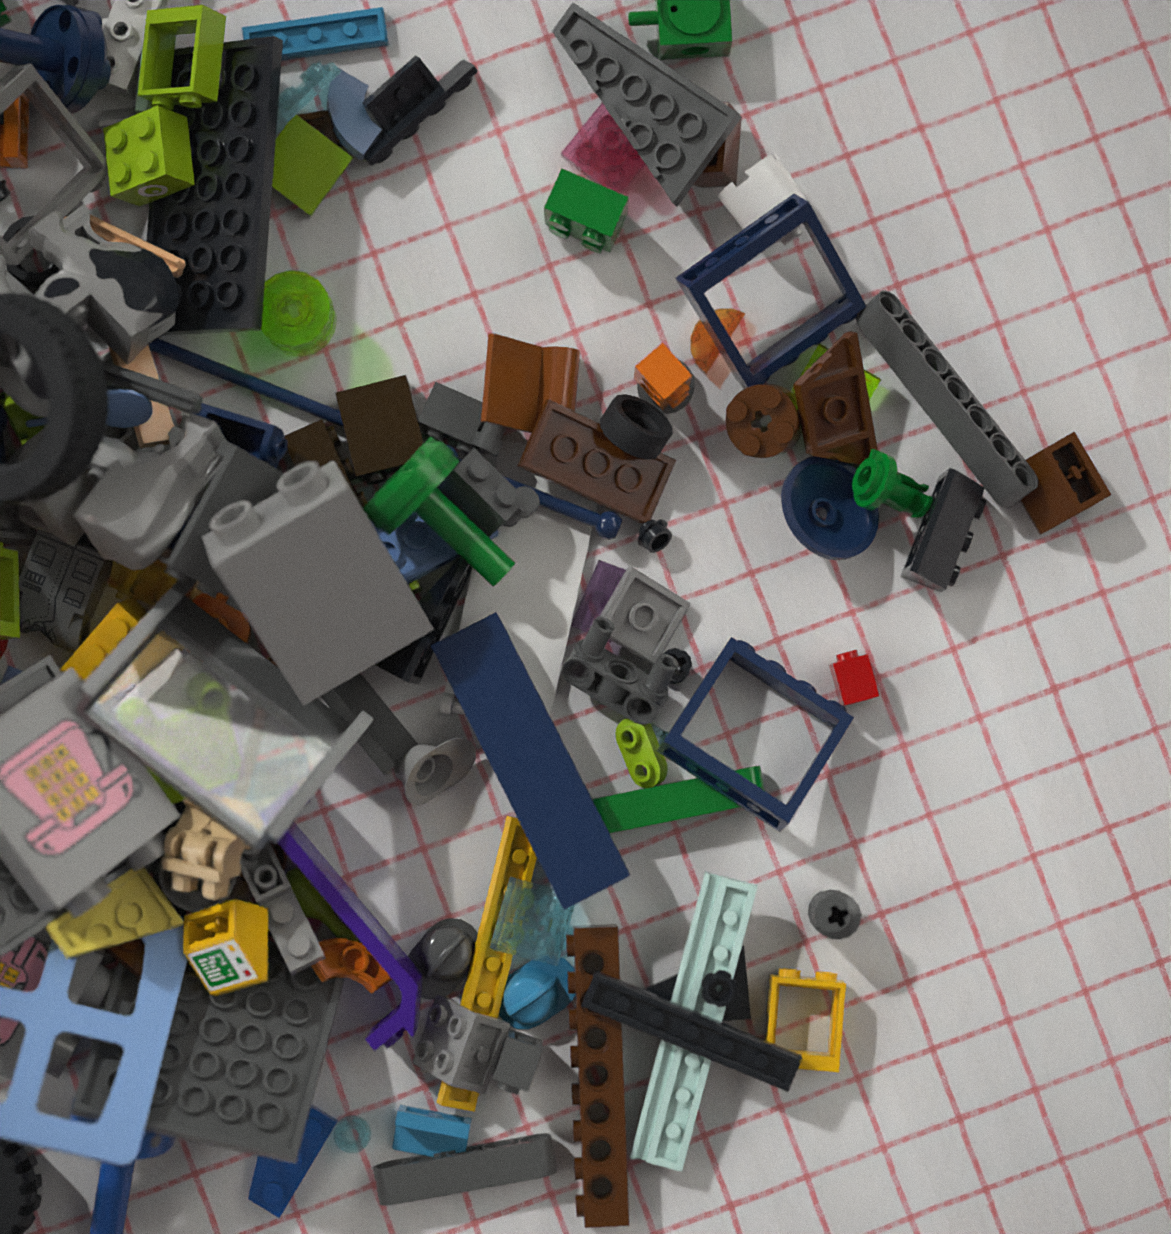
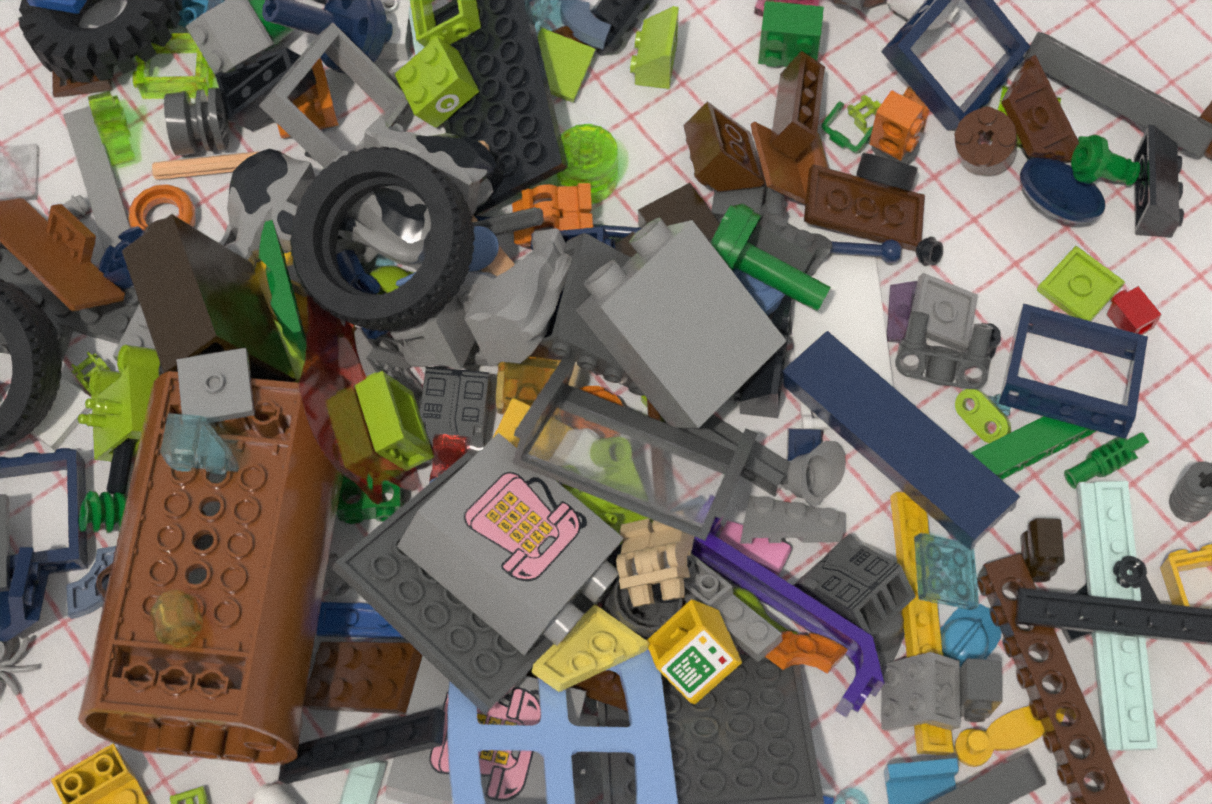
camera: 15 degrees left, 20 degrees down
(37, 641) = (446, 451): none -> clear red bracket
(221, 376) = (562, 209): none -> orange hips
(340, 831) = (767, 554): none -> bright pink slope
(383, 812) = (790, 520): none -> light grey wing
(424, 181) = (656, 49): none -> lime slope
(428, 914) = (858, 585): none -> dark grey piece
(433, 726) = (801, 441): none -> dark blue tile
(452, 344) = (722, 151): none -> reddish brown slope
(540, 1104) = (1007, 733): none -> yellow brick
(558, 315) = (797, 106): none -> reddish brown brick
(603, 354) = (838, 138): none -> green piece
(641, 930) = (1043, 548): none -> dark brown brick
(660, 329) = (858, 117): none -> lime piece
(756, 841) = (1106, 459): none -> green hinge
(812, 624) = (1080, 285): none -> lime tile

